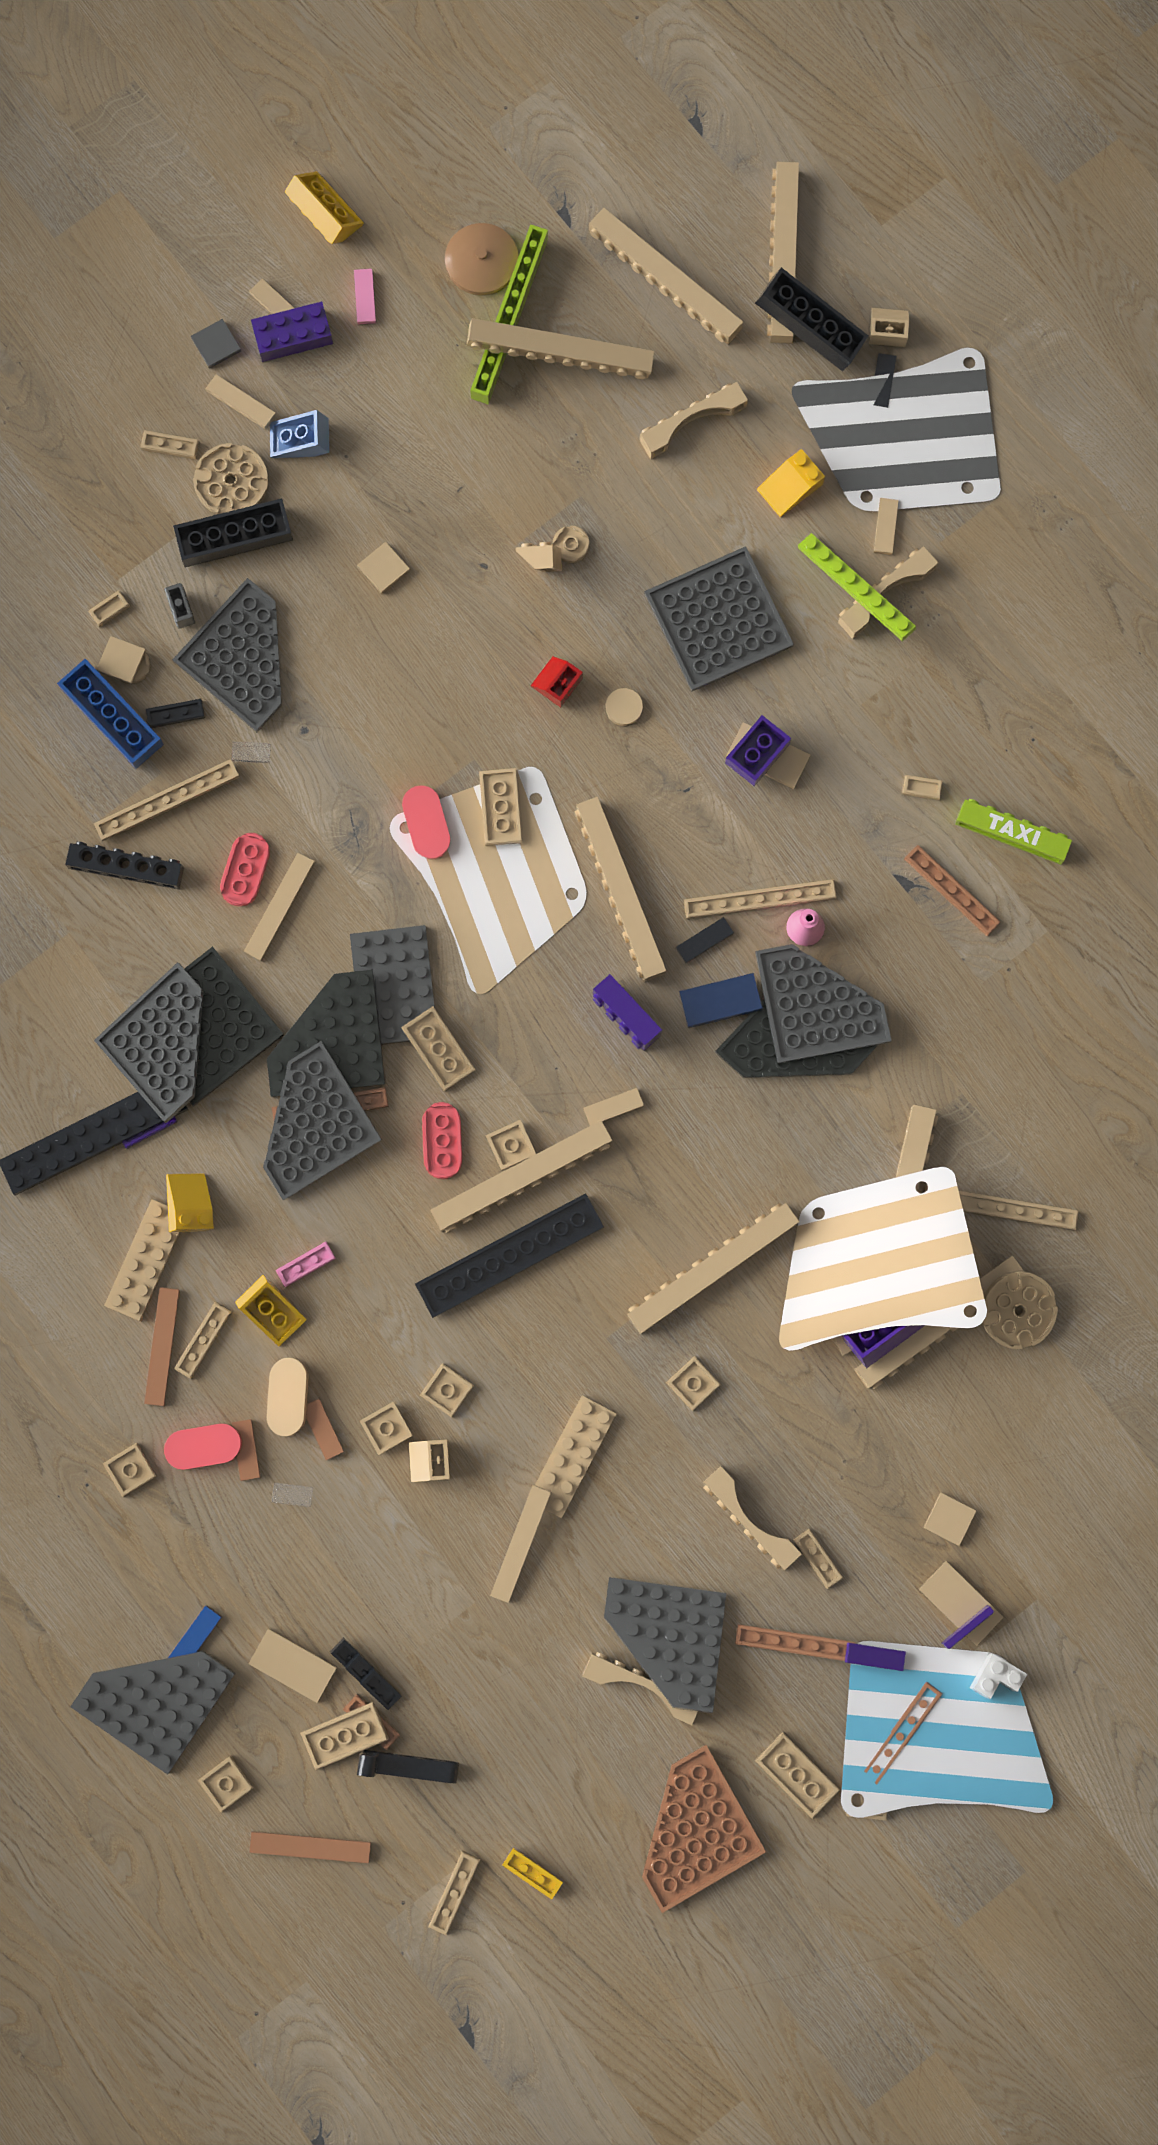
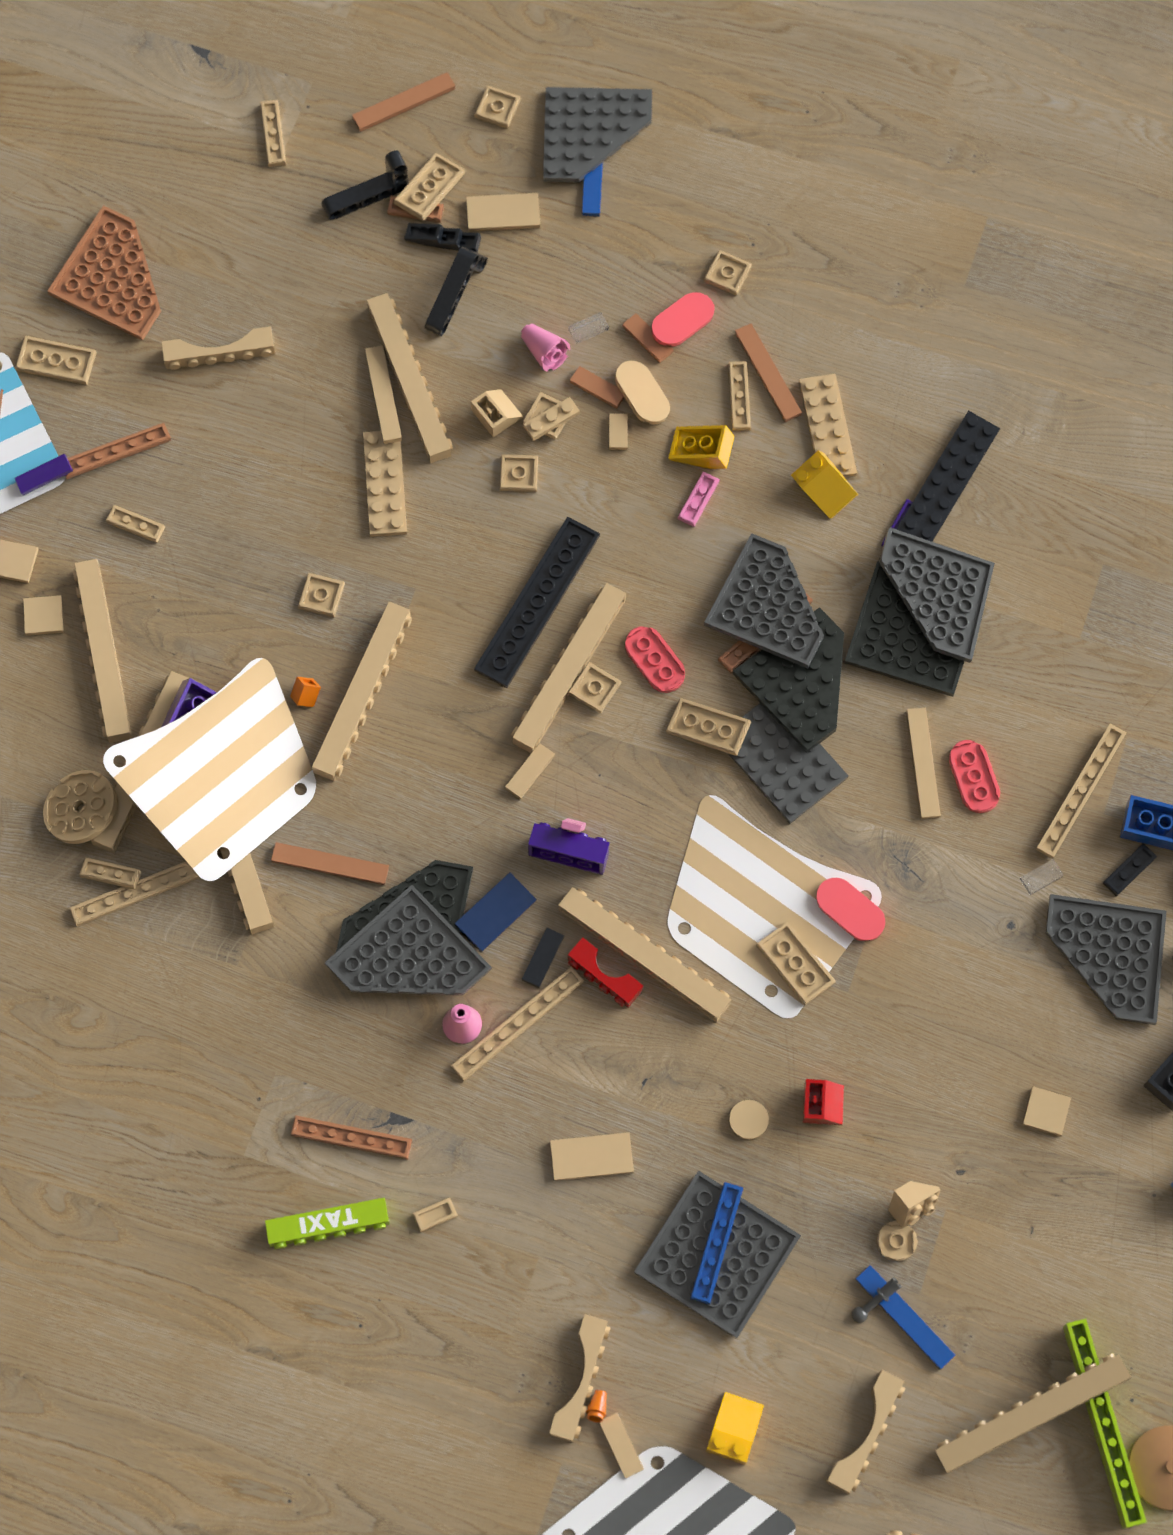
camera: 145 degrees right, 10 degrees down
(170, 879) = (1117, 694): black brick -> none
(333, 1374) = (618, 431): none -> tan tile
(346, 1498) = (546, 347): none -> bright pink cone
(386, 1419) = (551, 418): none -> tan plate
(389, 1606) = (453, 288): none -> black beam
(486, 1547) = (409, 378): none -> tan brick
(532, 1873) = (221, 177): yellow plate -> none
(604, 485) = (907, 1319): none -> blue tile
(610, 507) = (860, 1314): none -> dark grey pin
(611, 1026) = (573, 825): none -> bright pink tile
(655, 871) = (623, 988): none -> red arch
(671, 1636) = (218, 396): dark grey plate -> none
(714, 624) = (716, 1243): none -> blue tile
(723, 1487) = (173, 510): tan arch -> none
(758, 750) = (602, 1146): dark purple brick -> none
(762, 1299) = (305, 691): none -> orange panel
(832, 1131) = (330, 863): none -> nougat tile
(857, 587) = (610, 1359): lime plate -> none
(886, 563) = (597, 1408): none -> orange cone
(916, 1450) = (103, 651): none -> tan brick
(1024, 1238) = (110, 873): none -> tan tile

